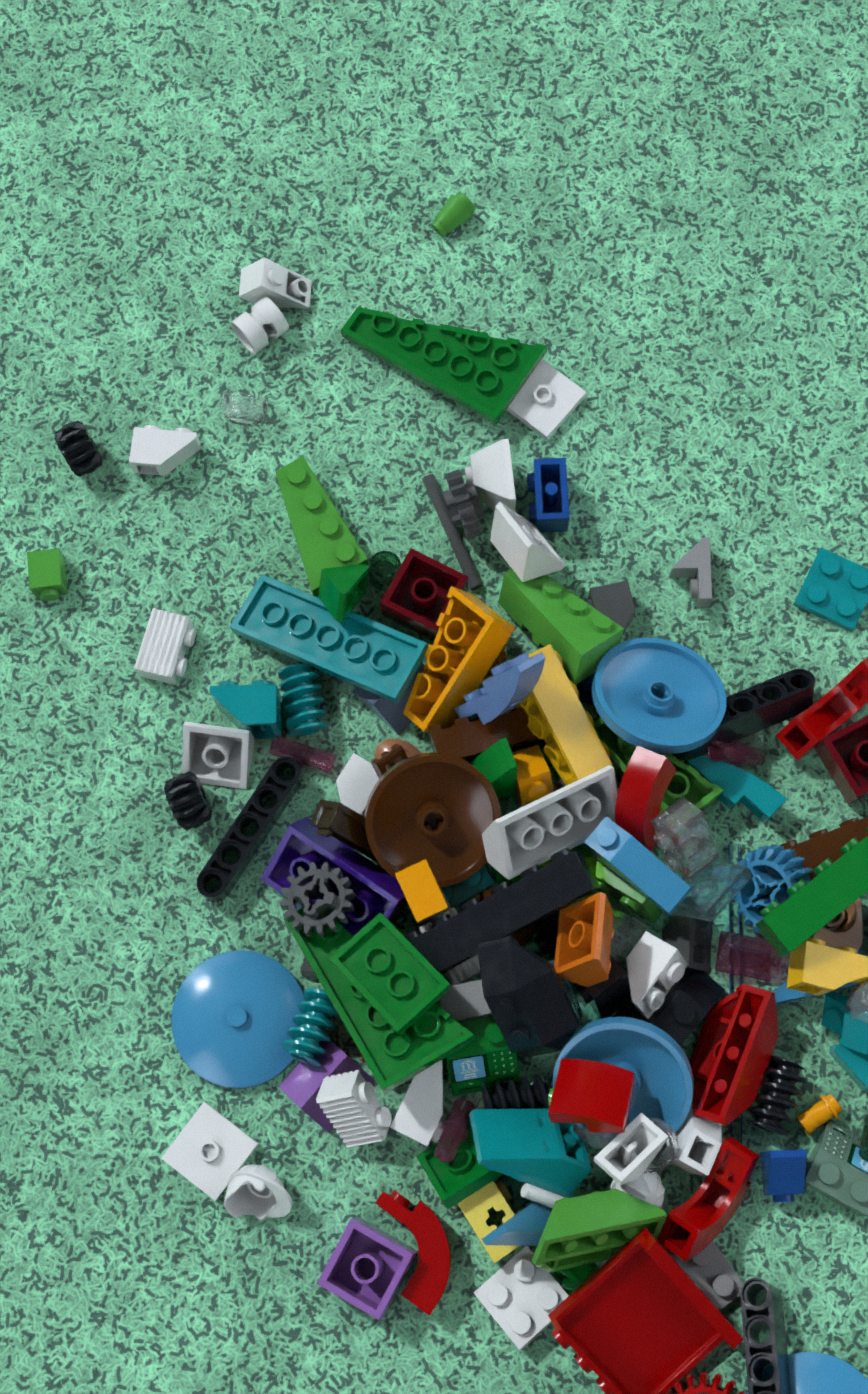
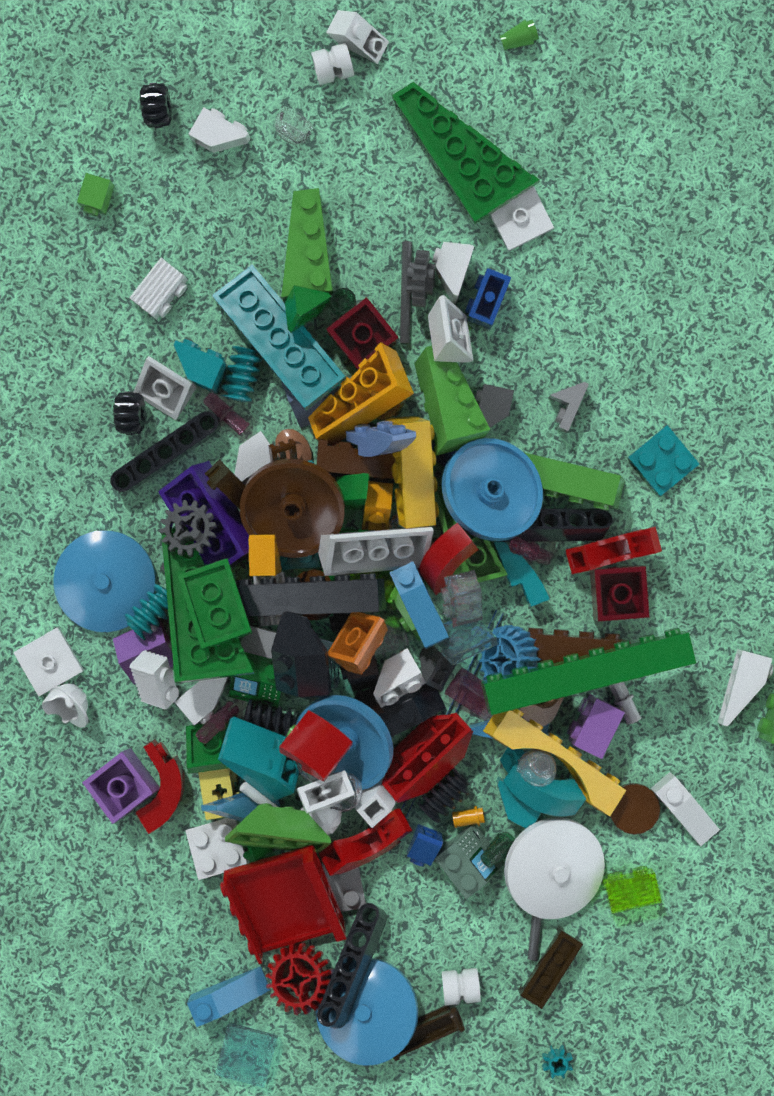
camera: 25 degrees right, 15 degrees up
(755, 650) = (579, 483): none -> bright green wedge

